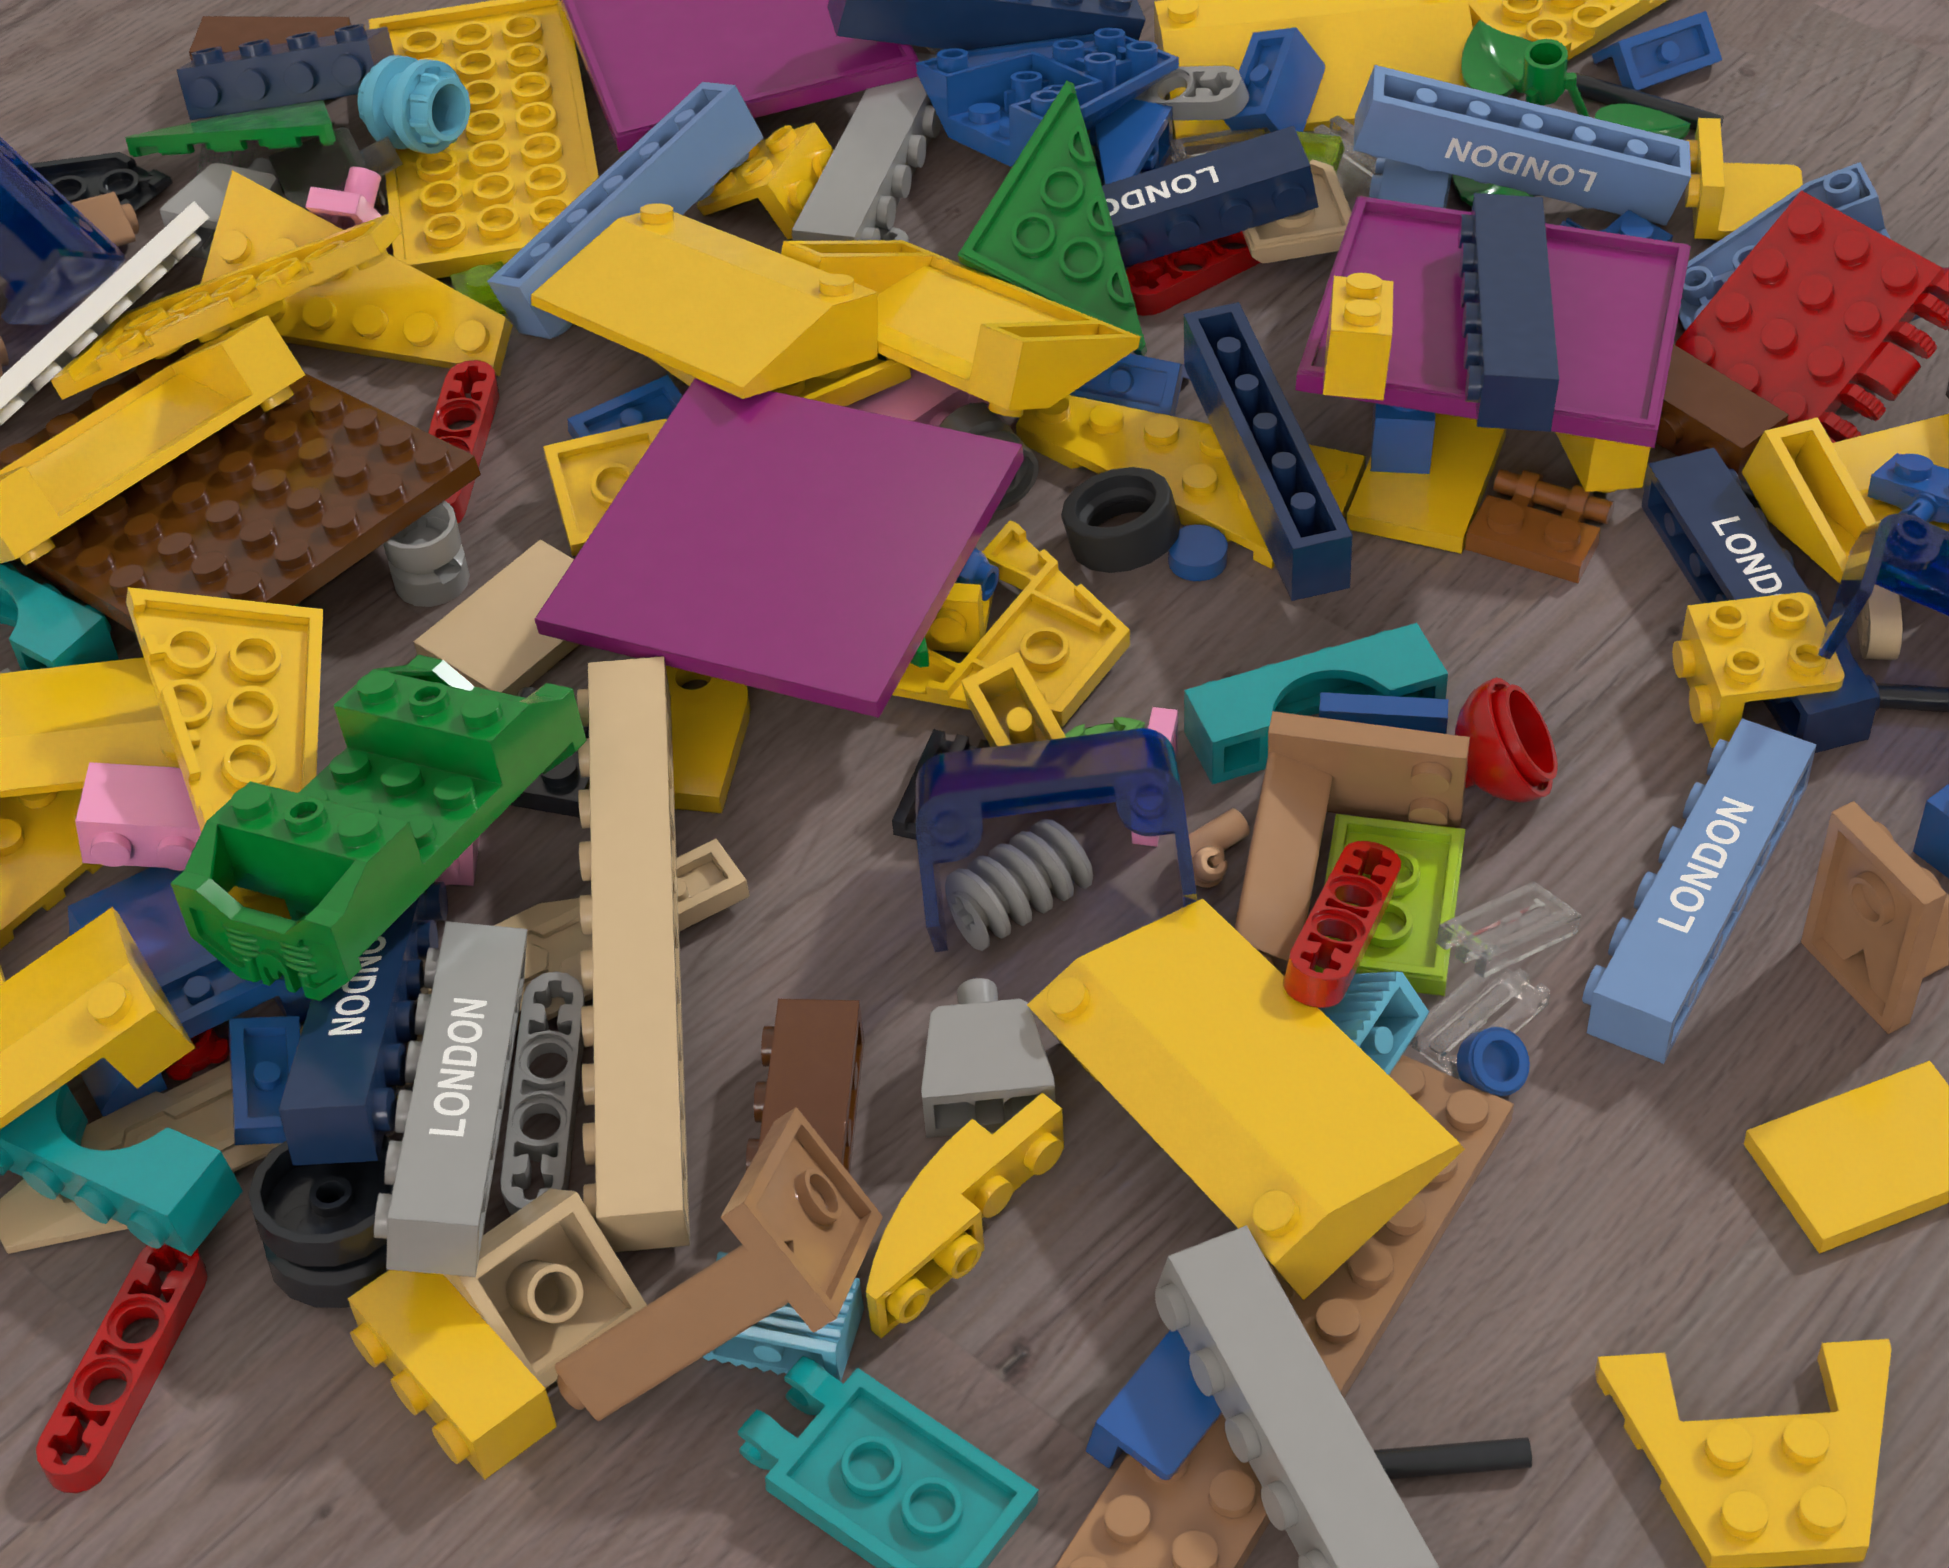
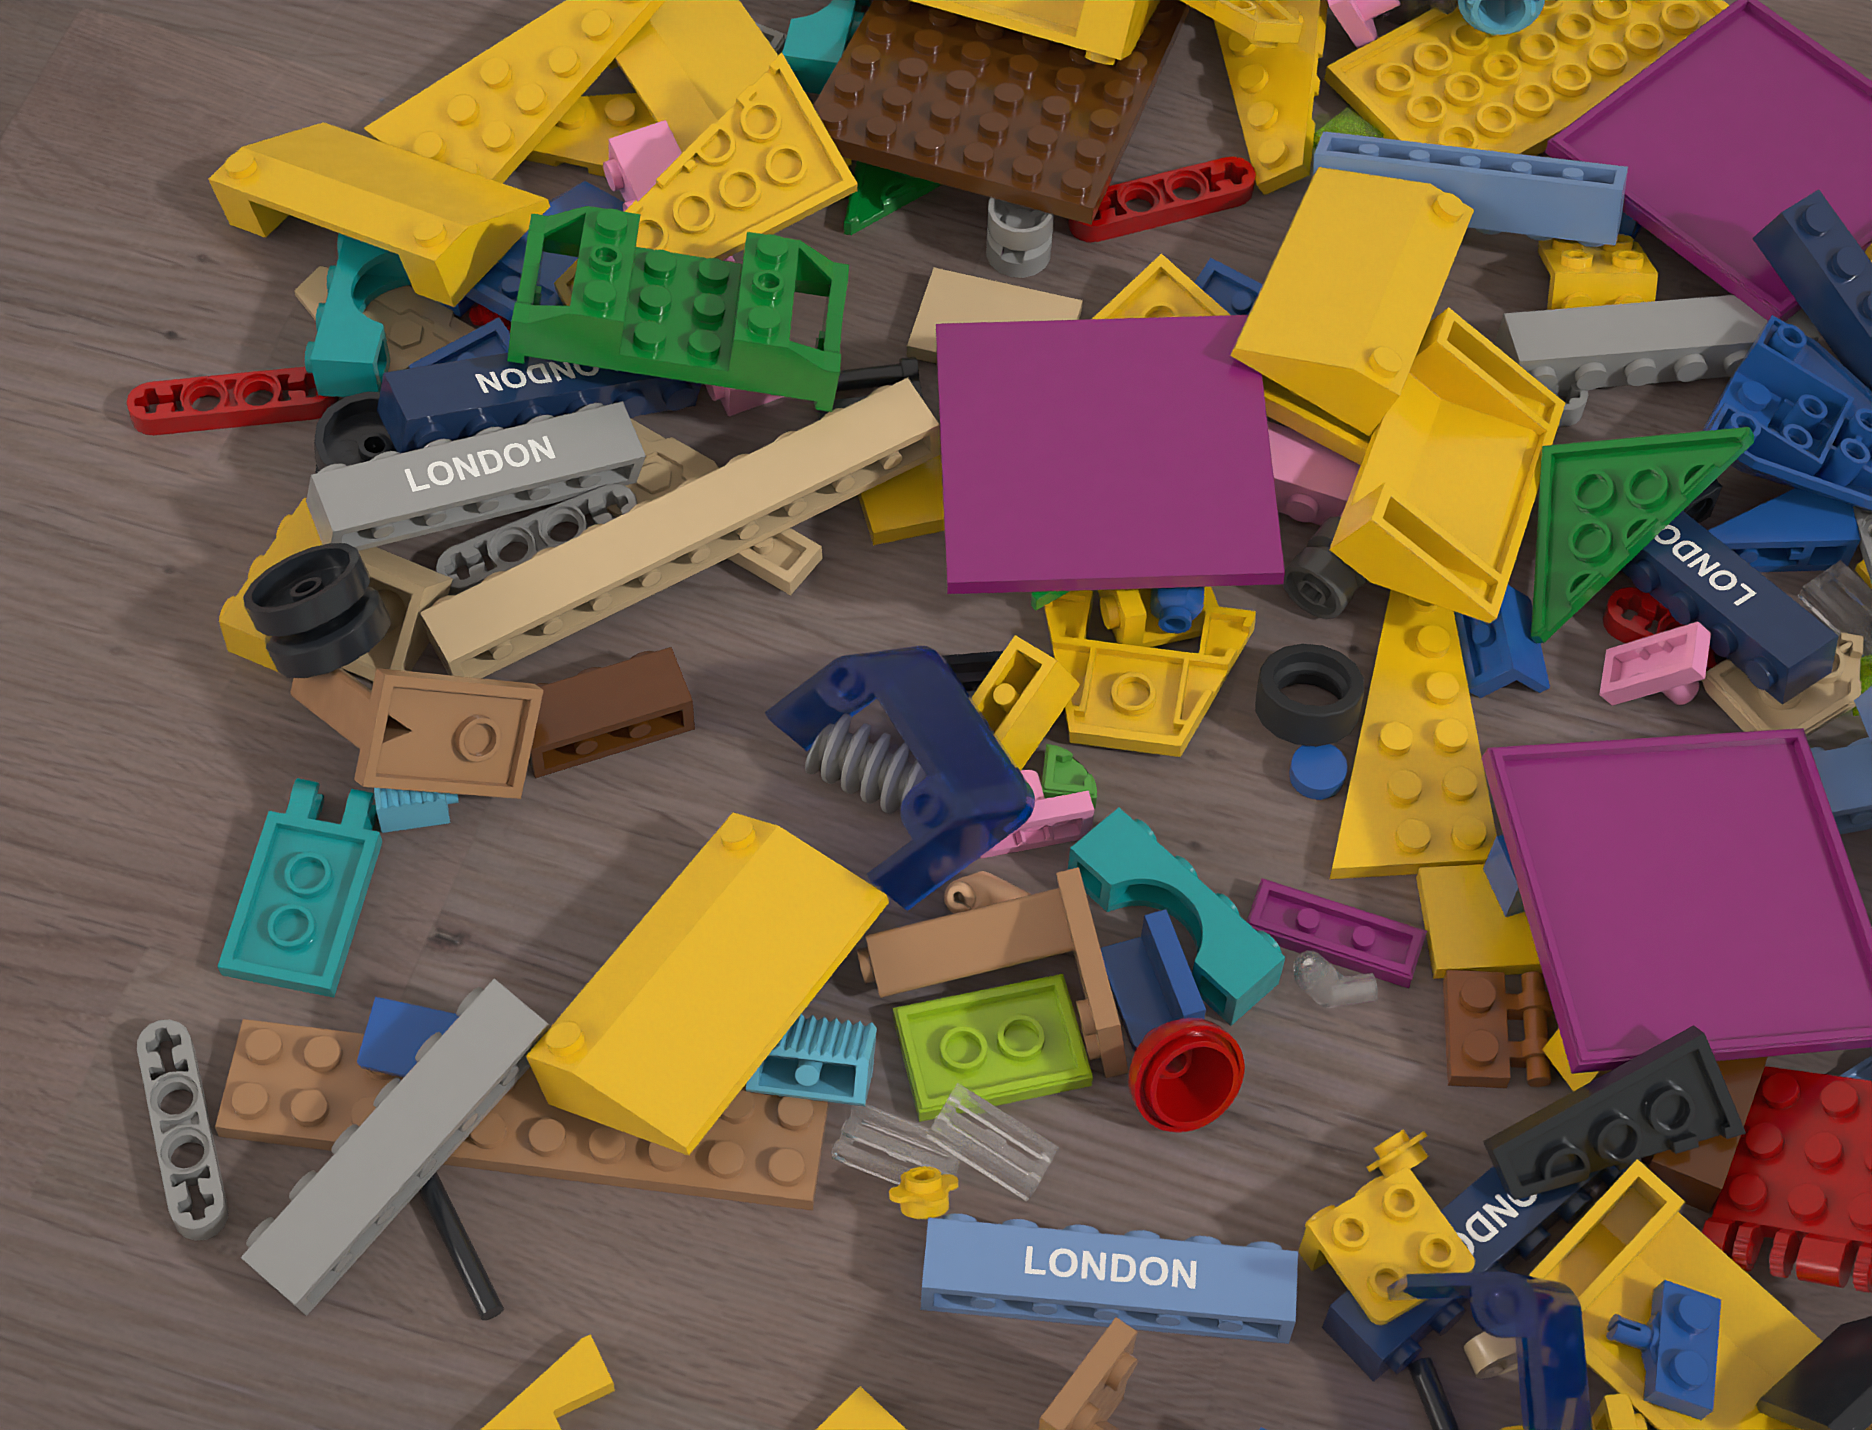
camera: 60 degrees right, 10 degrees up
(556, 1297) = (317, 610): none -> black wheel
(939, 1218) = (526, 835): yellow slope -> none
(981, 1061) = (684, 805): light grey torso -> none
(1227, 266) = (1655, 664): none -> bright pink tile
(1267, 452) = (1418, 766): dark blue brick -> none
(1339, 920) = (907, 996): red beam -> none
(1358, 337) = (1533, 774): yellow brick -> none
(1386, 595) = (1337, 932): none -> magenta tile
(1445, 620) = (1328, 985): none -> clear arm
(1493, 1061) = (846, 1172): blue tile -> none
(1508, 313) = (1664, 890): dark blue brick -> none
(1554, 994) = (923, 1192): none -> yellow plate
(1651, 628) = (1398, 1153): none -> yellow plate
(1708, 424) = (1634, 1111): none -> black wing

